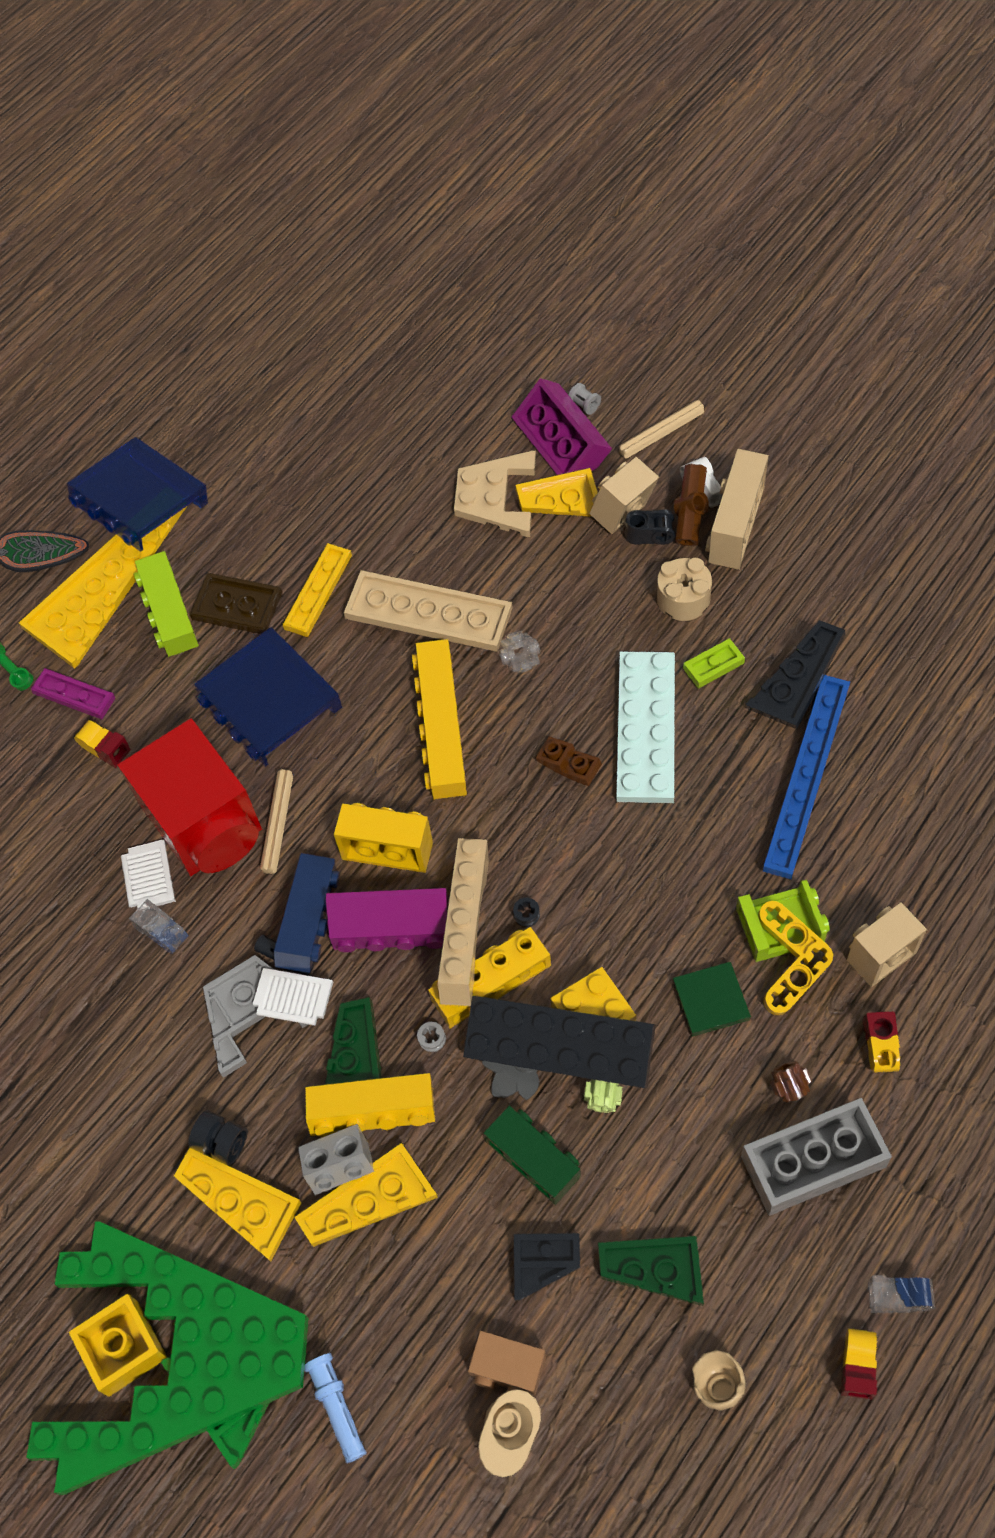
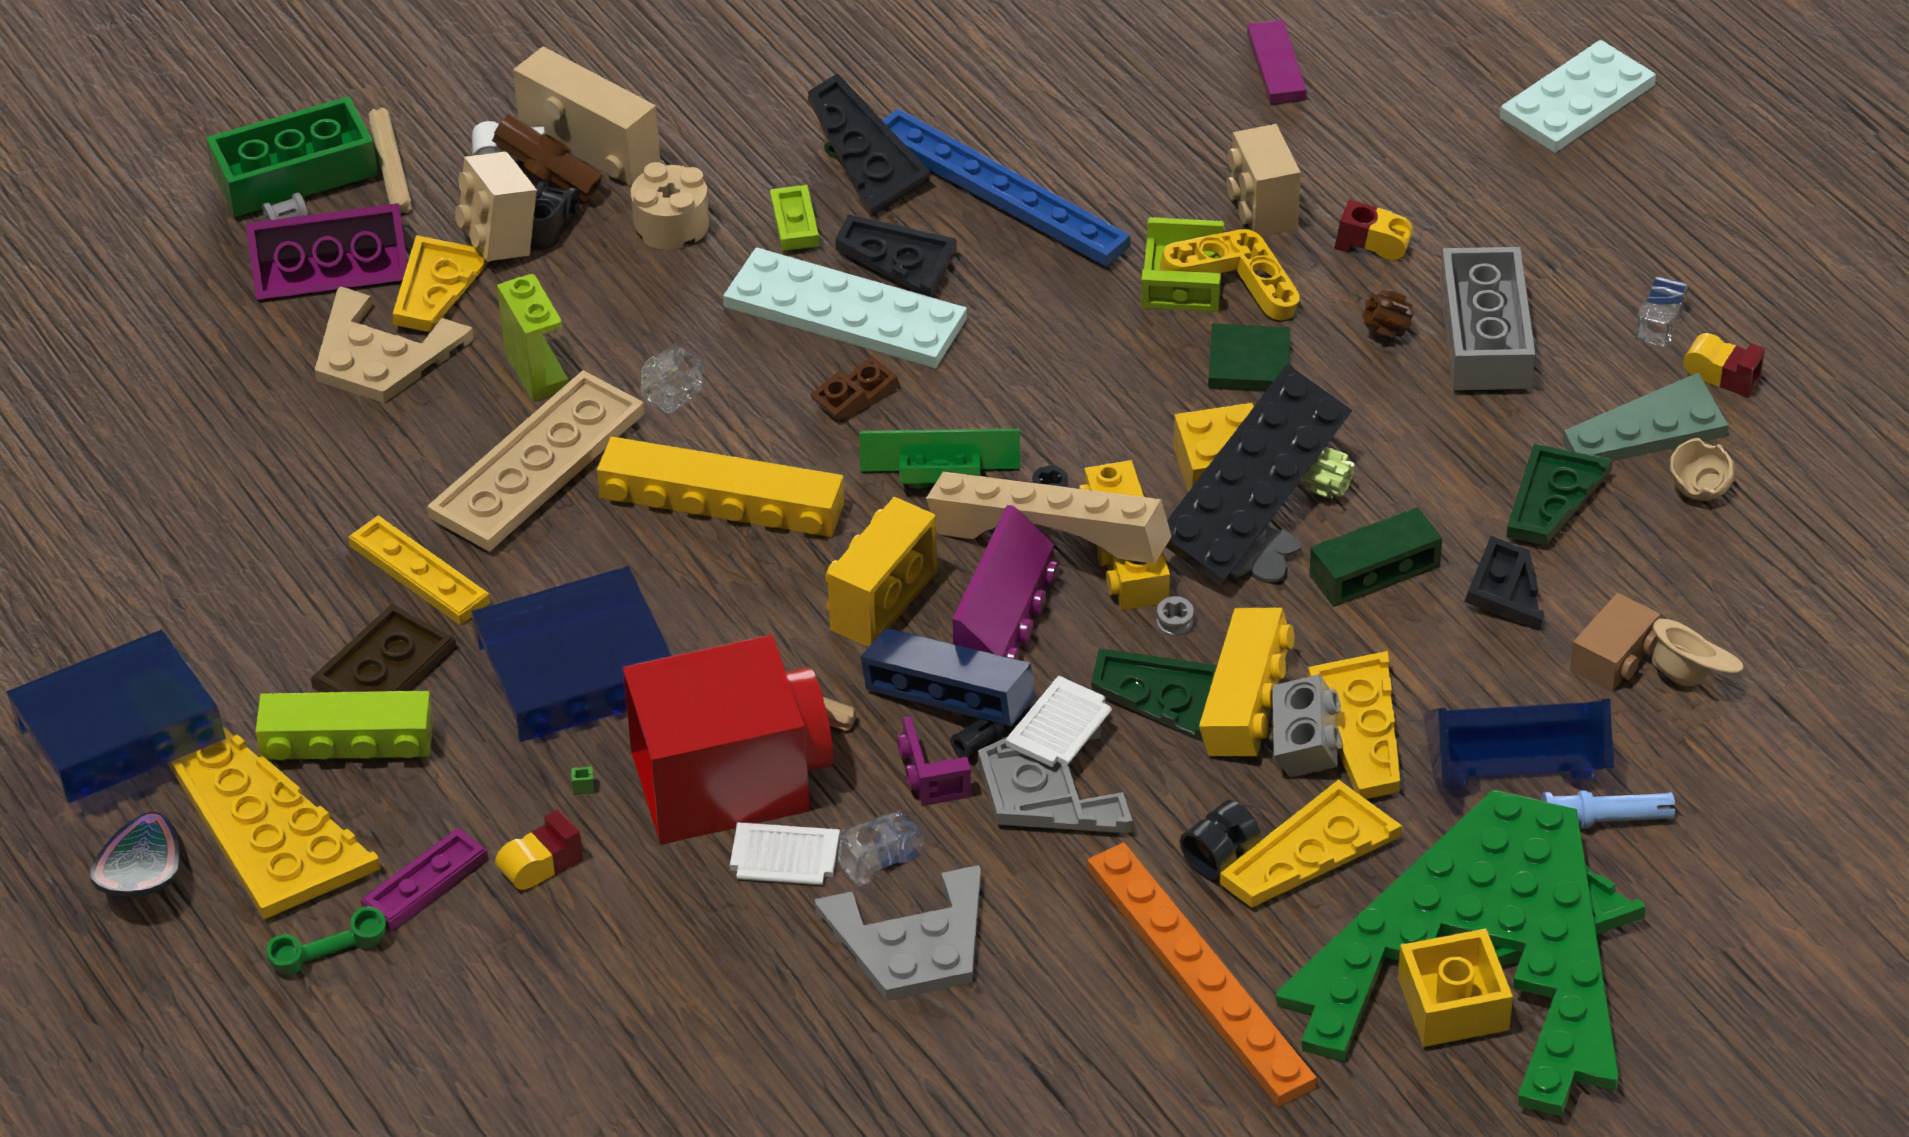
camera: 75 degrees left, 15 degrees down
(85, 982) = (912, 951): none -> light grey wing
(107, 1167) = (1202, 975): none -> orange plate
(225, 927) = (933, 781): none -> magenta bracket
(384, 1311) = (1520, 741): none -> clear blue windscreen
(510, 562) = (524, 319): none -> lime panel
(517, 836) = (926, 454): none -> green bracket
(628, 378) = (292, 155): none -> green brick
(710, 737) = (899, 252): none -> black wing
(774, 1328) = (1651, 423): none -> sand green wing

